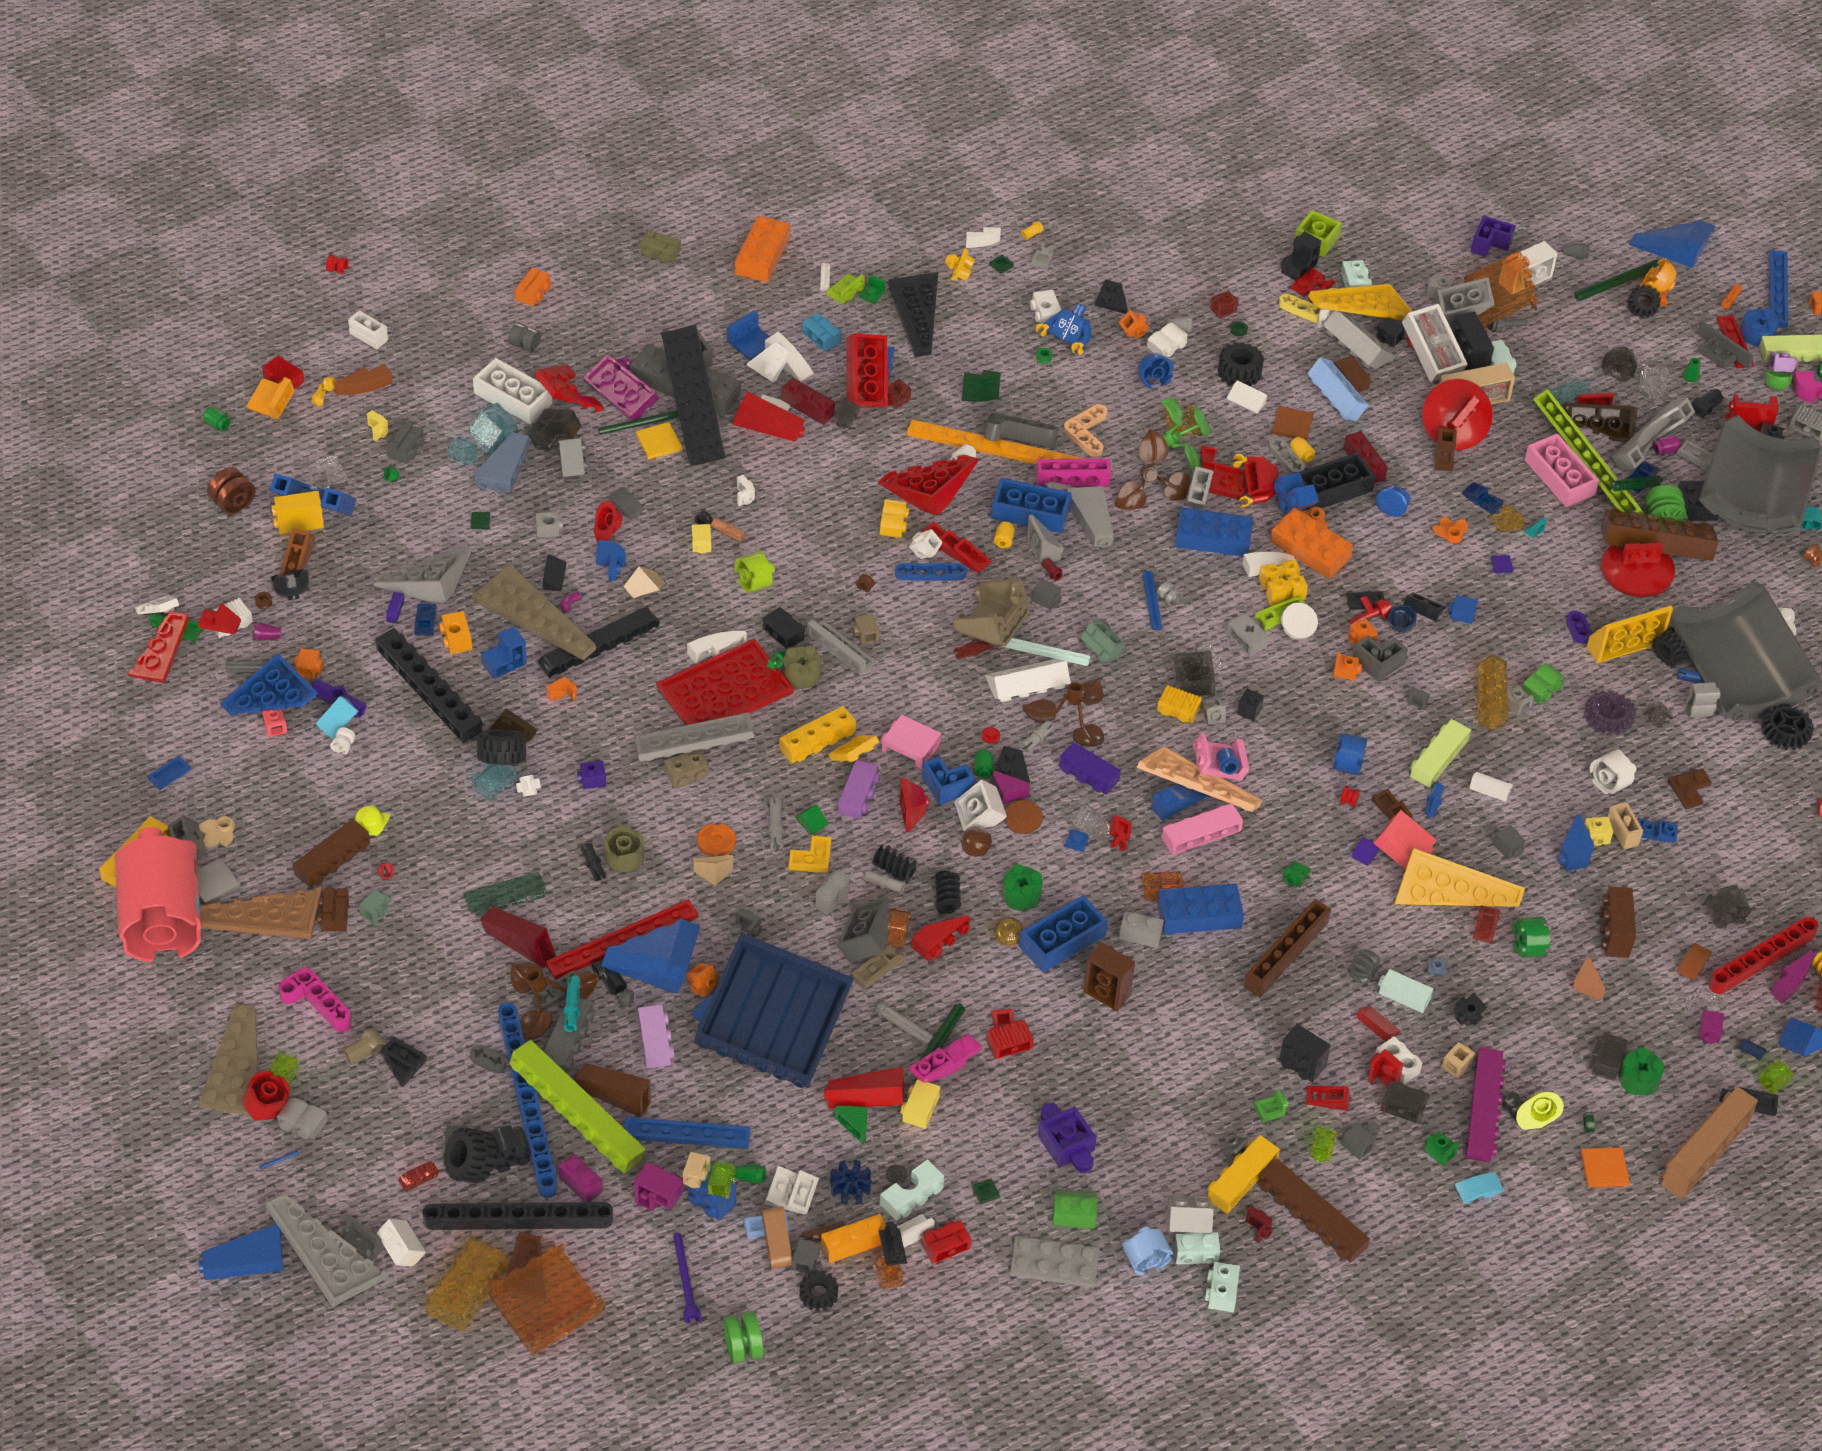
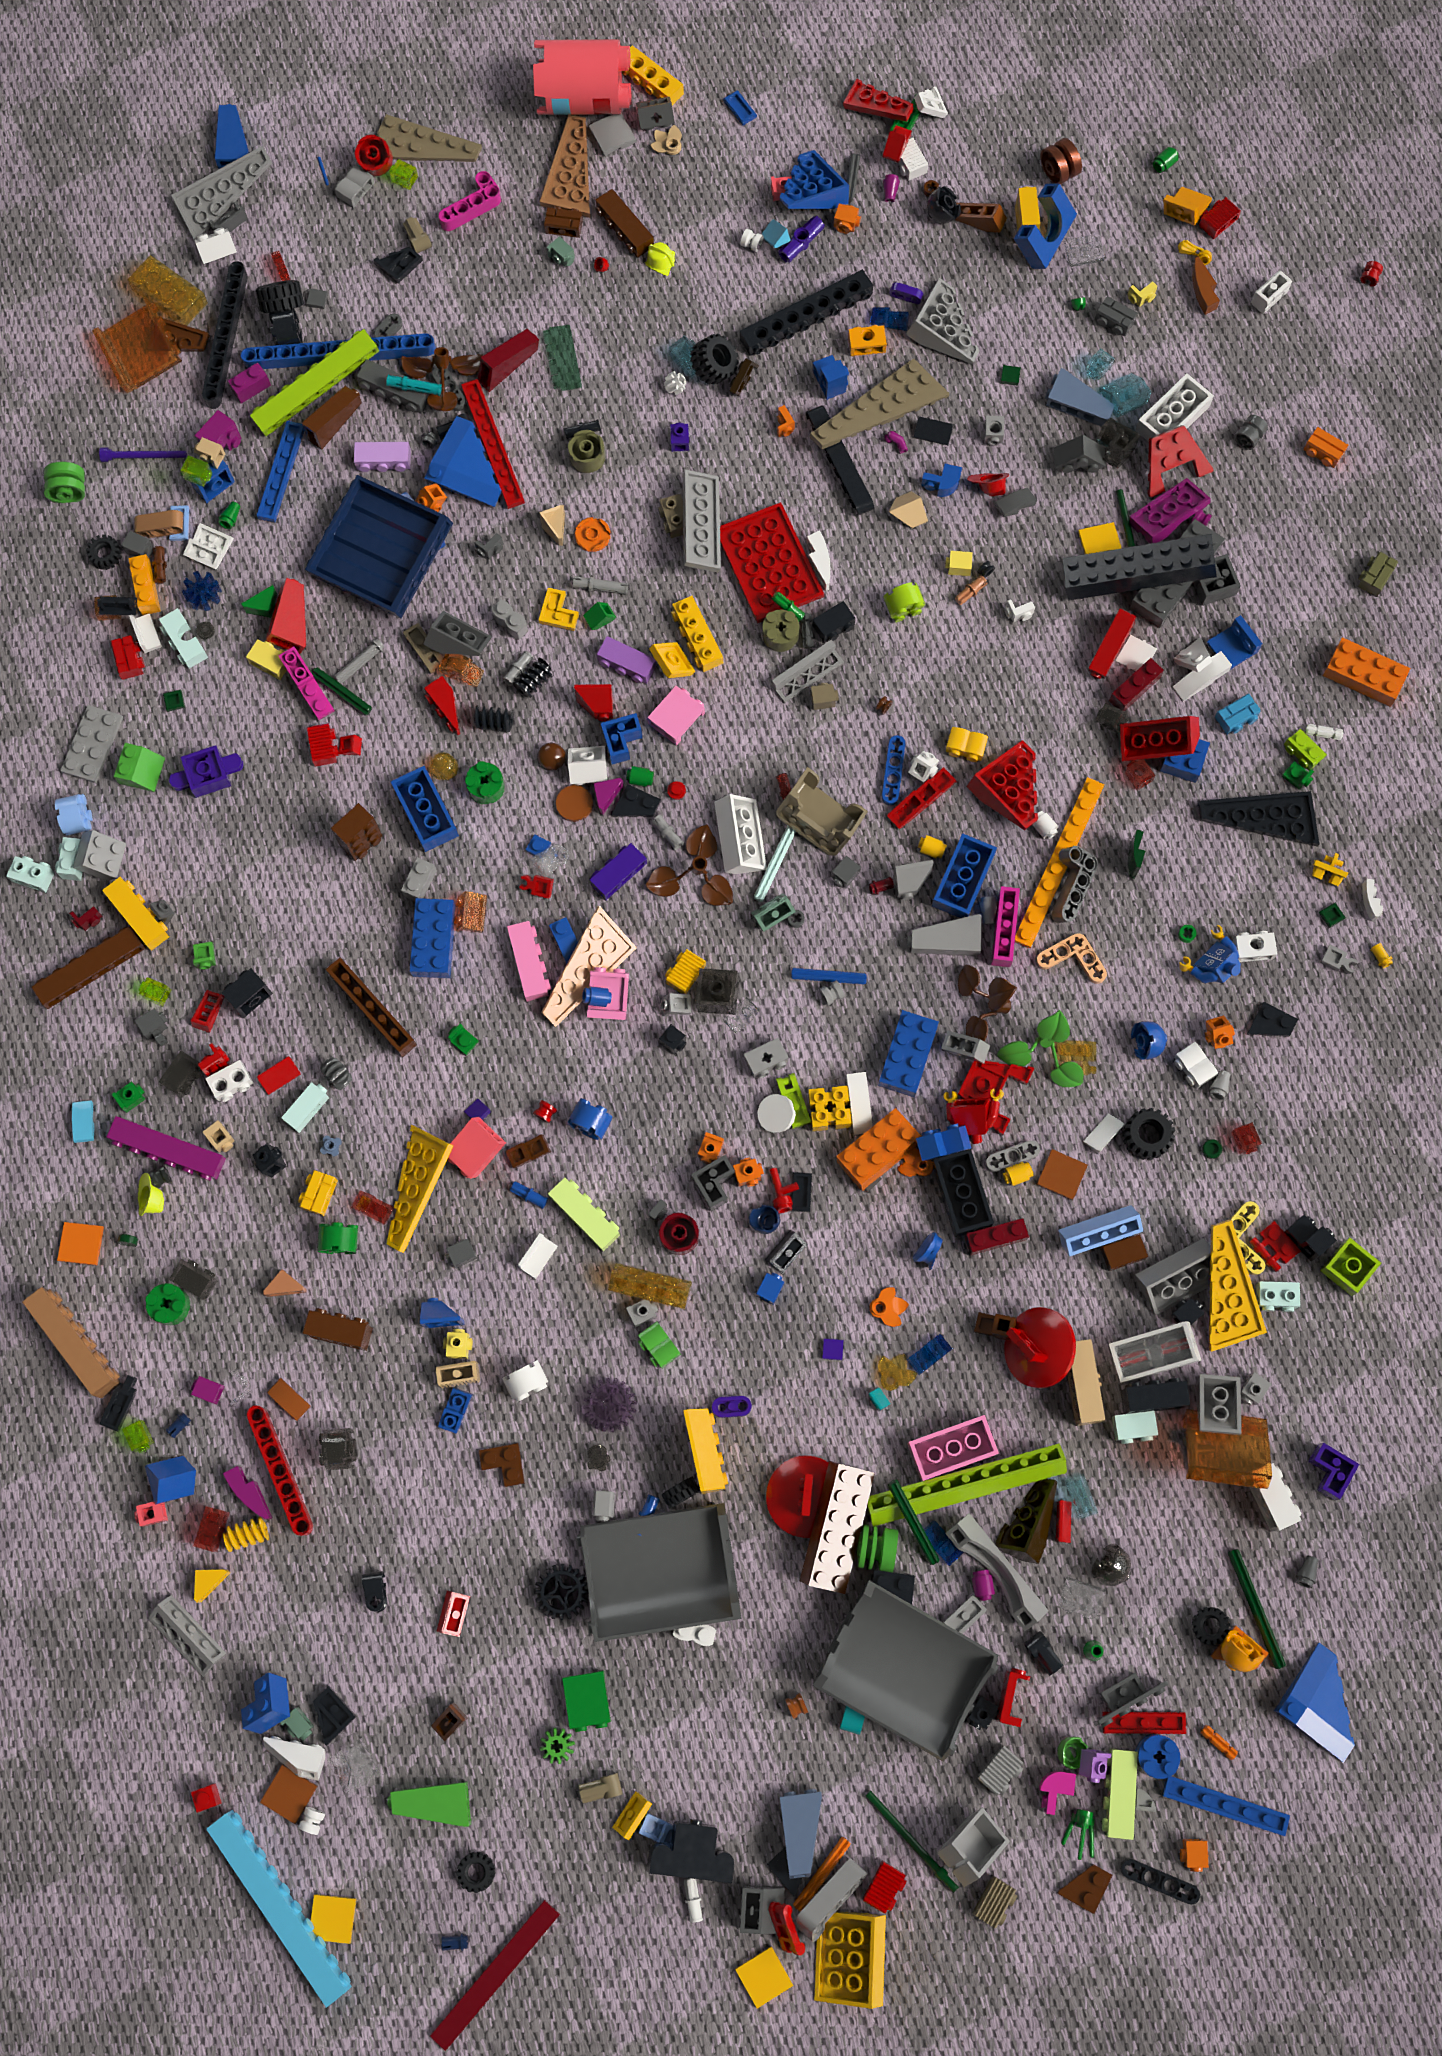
camera: 105 degrees right, 25 degrees up
(1437, 677) = (686, 1225): none -> dark red brick
(1488, 967) = (317, 1193): none -> yellow brick

